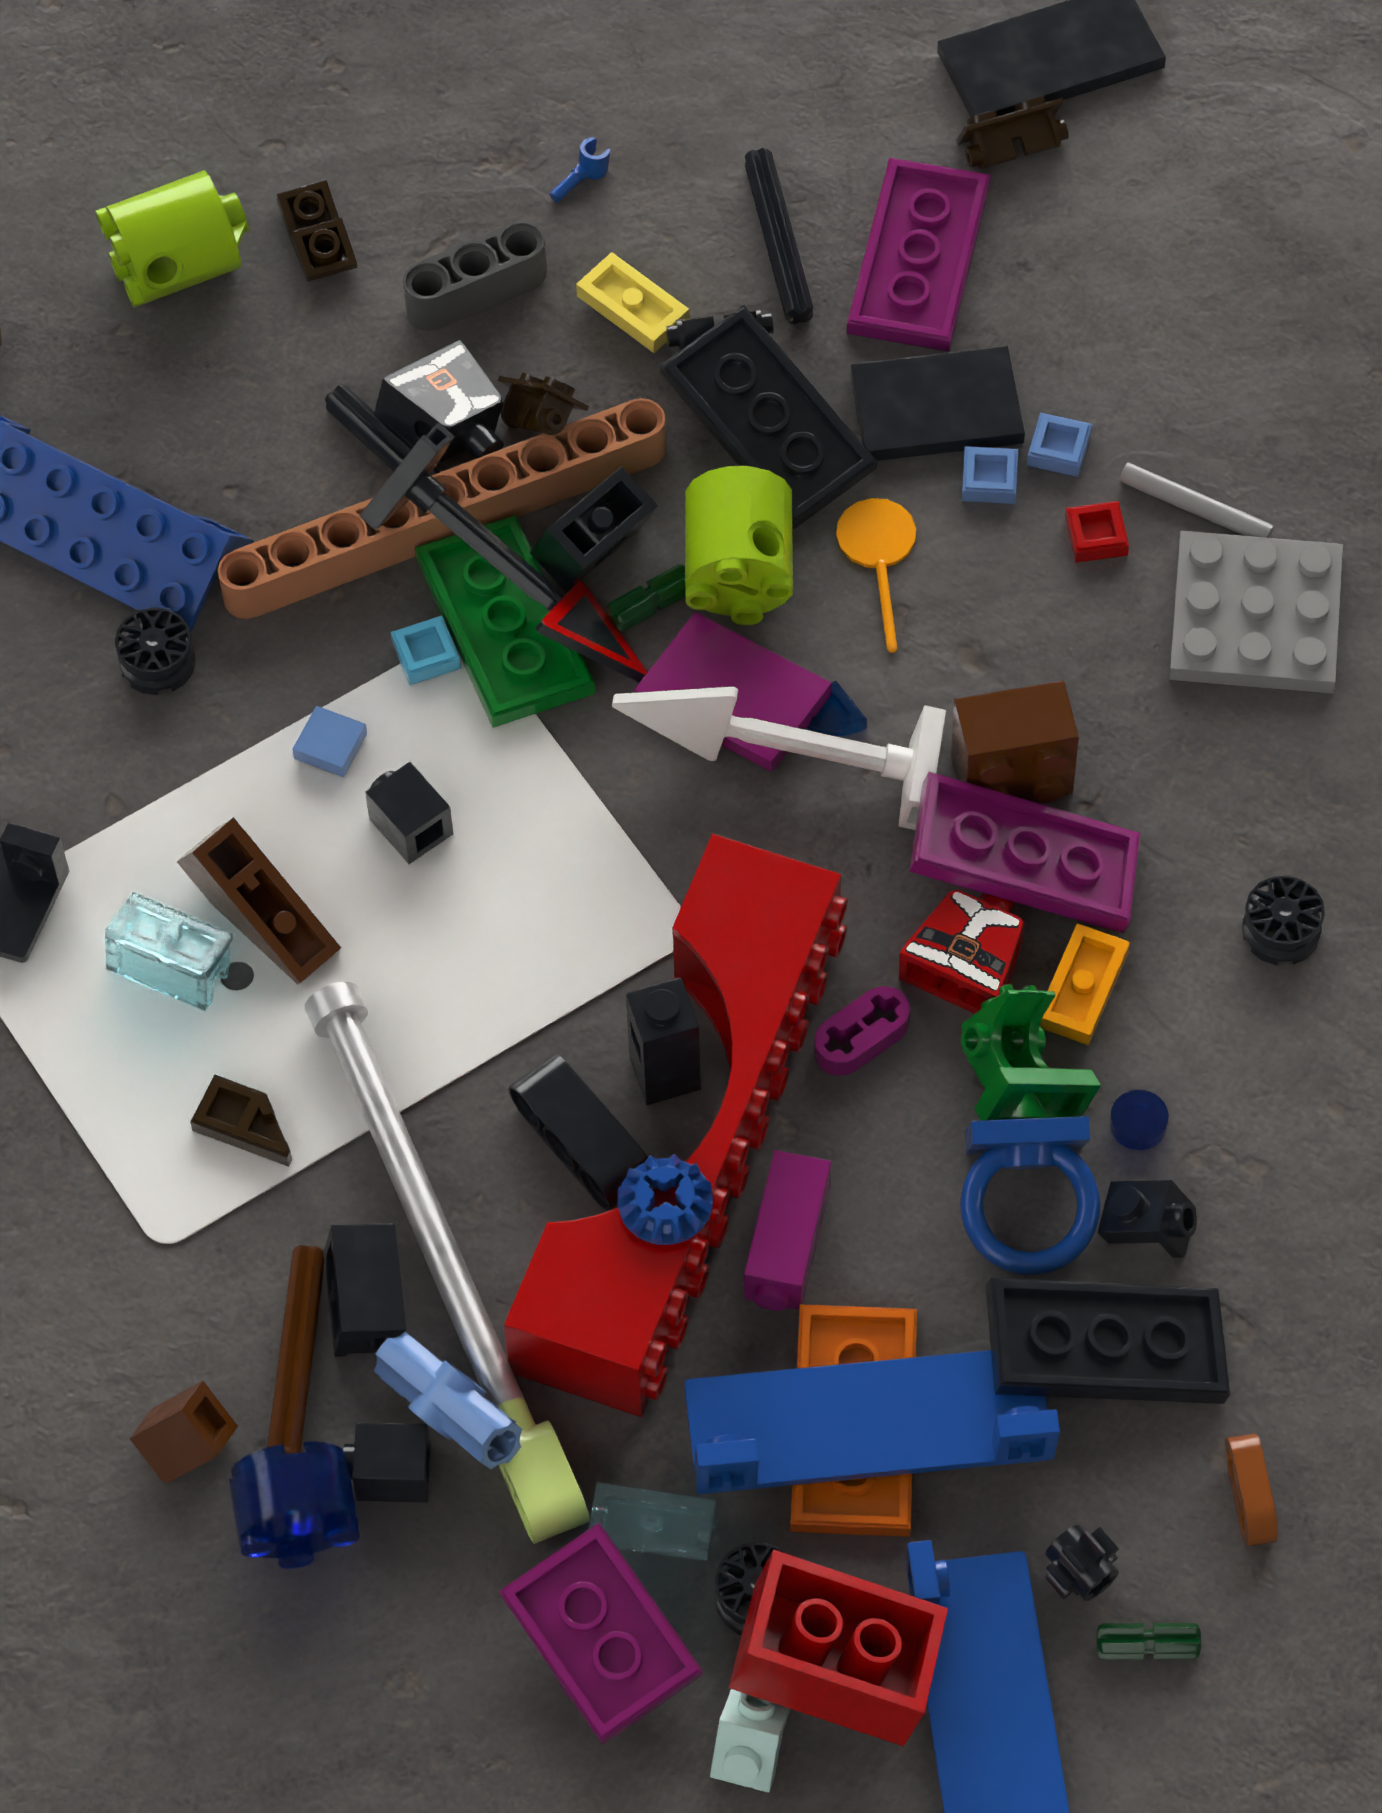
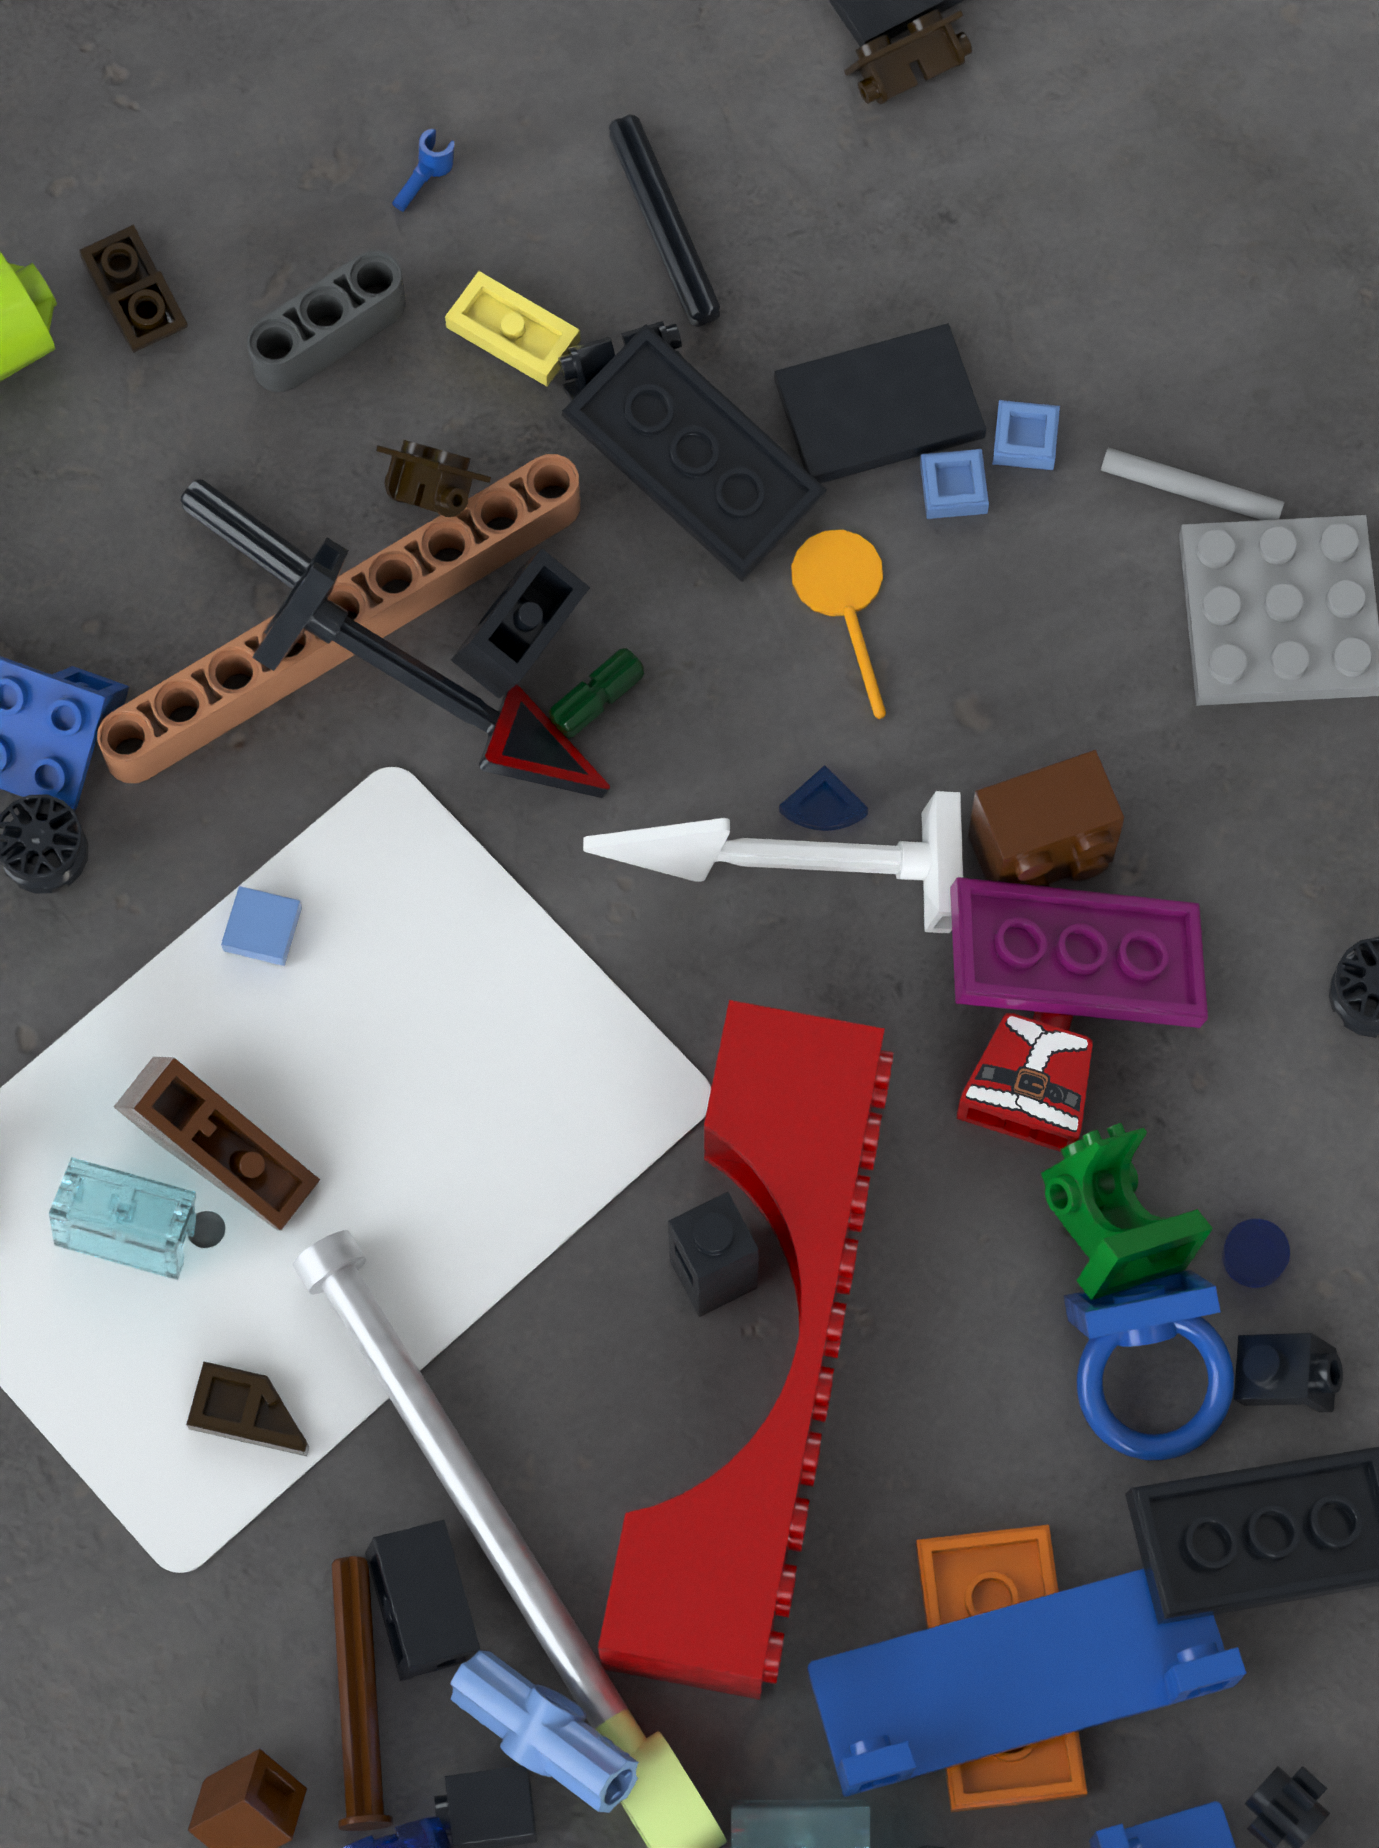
camera: 10 degrees left, 10 degrees up
(408, 812) = (368, 1003): black brick -> none
(425, 650) = (351, 795): medium azure tile -> none
(447, 391) = (321, 489): black torso -> none
(496, 631) = (431, 755): green tile -> none
(577, 1128) = (635, 1368): black beam -> none
(667, 1223) = (765, 1498): blue gear -> none
(738, 543) = (689, 617): lime cylinder -> none
(767, 683) = (699, 774): magenta tile -> none
(787, 1231) = (888, 1456): magenta brick -> none
(869, 1038) = (917, 1182): magenta beam -> none
(918, 254) = (826, 220): magenta tile -> none
(1084, 983) = (1168, 1097): light orange plate -> none
(1097, 531) = (1086, 536): red tile -> none

